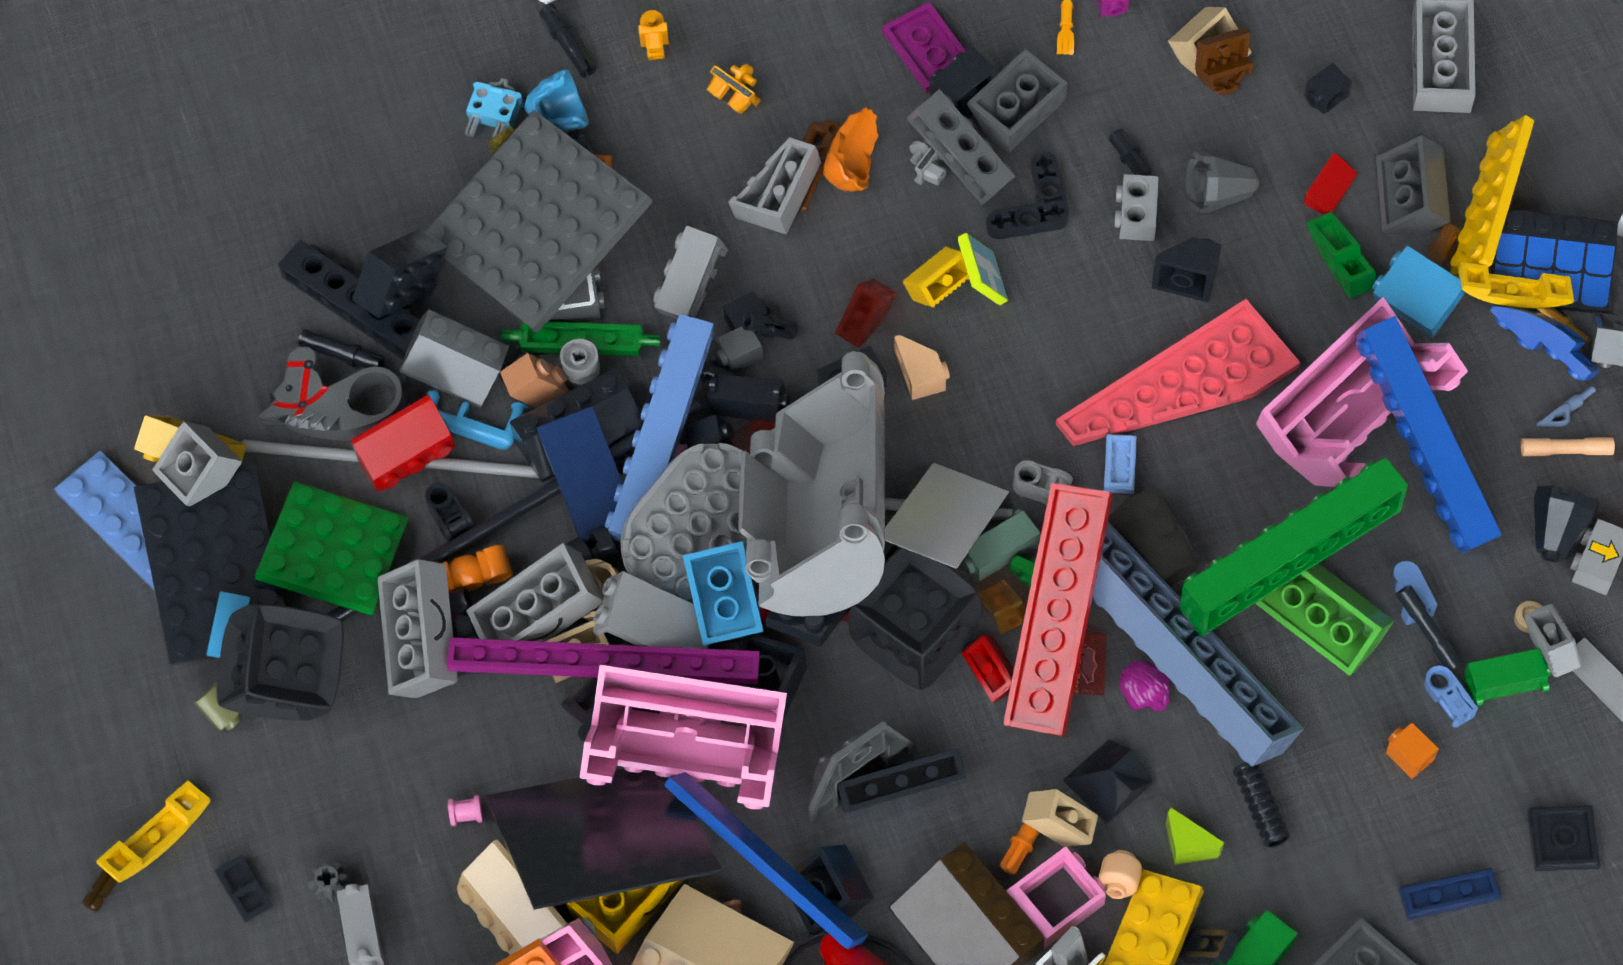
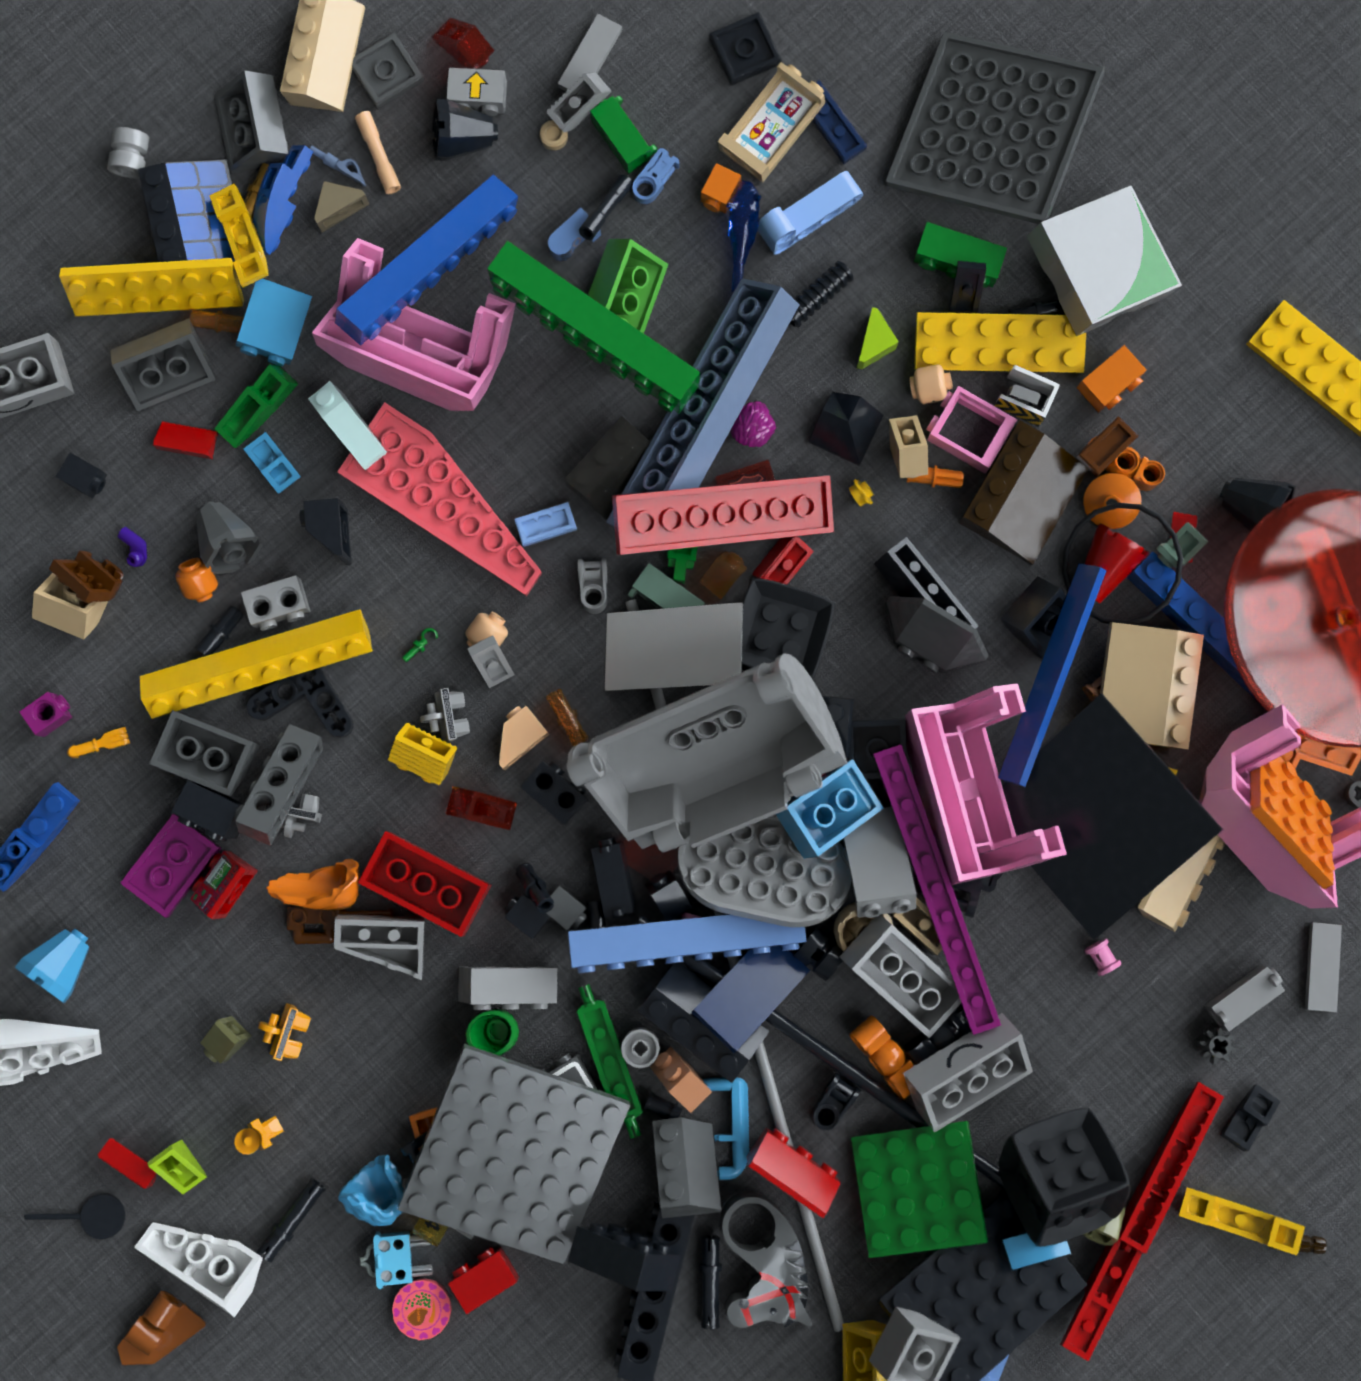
camera: 115 degrees left, 20 degrees up
(203, 744) = (1141, 1220): none -> red slope
(439, 116) = (422, 1309): none -> coral tile
(439, 169) = (483, 1279): none -> red brick
(652, 244) = (493, 1031): none -> green hat
(751, 38) = (224, 1039): none -> olive slope
(815, 238) = (424, 883): none -> red brick
(889, 79) = (222, 885): none -> red slope
(920, 415) = (567, 717): none -> clear orange pin
(980, 316) = (445, 703): none -> light grey hips
(982, 269) = (400, 716): tile -> none
(1001, 362) = (491, 661): none -> light grey plate
(1032, 373) = (485, 626): none -> light nougat head
(1032, 765) = (861, 492): none -> yellow plate
(1046, 316) = (419, 645): none -> green hand
(1085, 171) = (255, 664): none -> yellow brick
(1182, 146) = (196, 580): none -> orange head
(1241, 115) = (137, 547): none -> dark purple arm
(1279, 252) = (272, 462): none -> dark azure slope
(1291, 318) = (347, 424): none -> light aqua slope
(1343, 795) = (787, 227): none -> light blue beam
(1363, 756) = (742, 226): none -> clear blue piece
(1465, 826) = (773, 122): none -> panel
(1523, 388) = (337, 204): none -> dark tan slope

